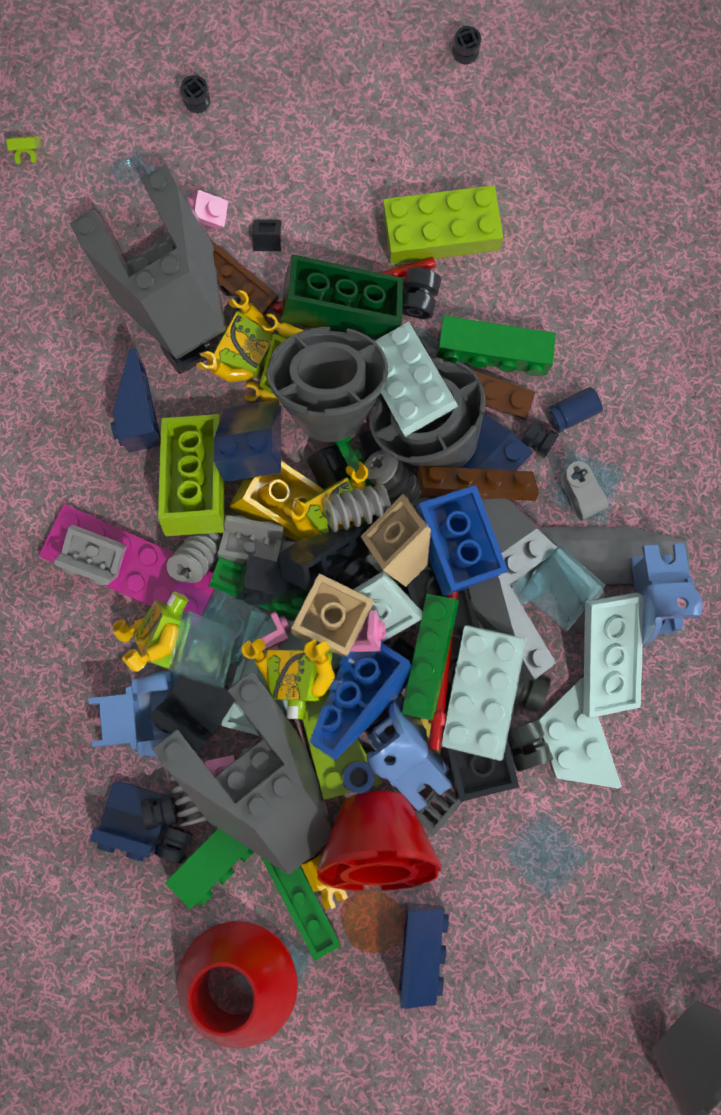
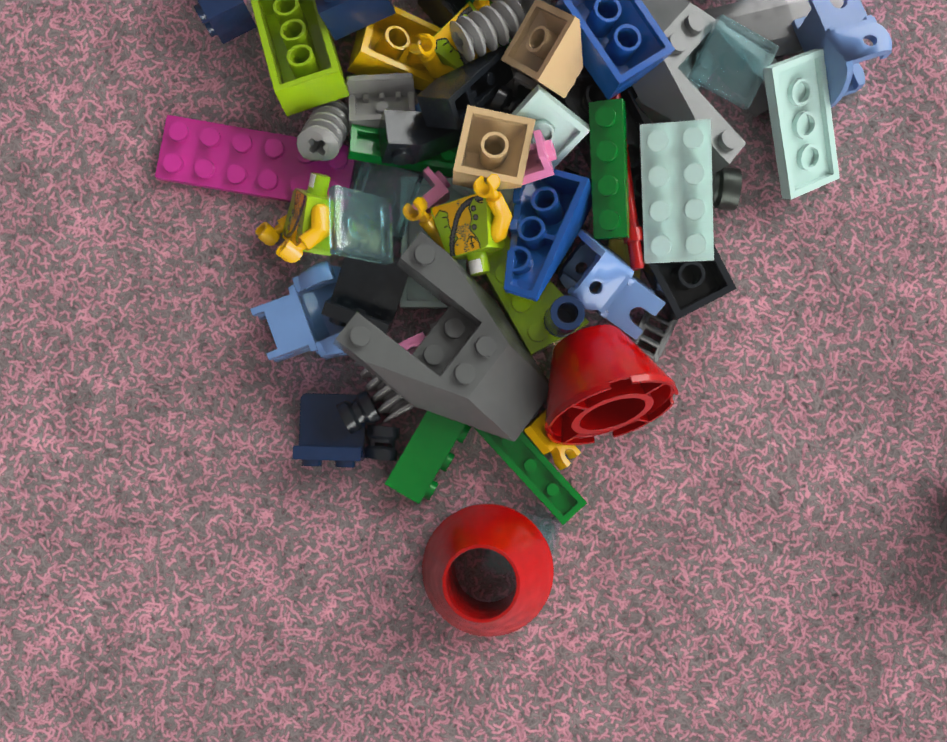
camera: 15 degrees left, 5 degrees up
(91, 556) = (211, 158): light grey bracket -> none
(376, 911) = (605, 463): clear orange tile -> none
(422, 955) = (674, 490): dark blue slope -> none
(526, 734) = (732, 232): pearl dark grey wheel -> none
(547, 856) = (778, 357): clear light blue tile -> none
(578, 742) = (781, 230): light aqua wing -> none

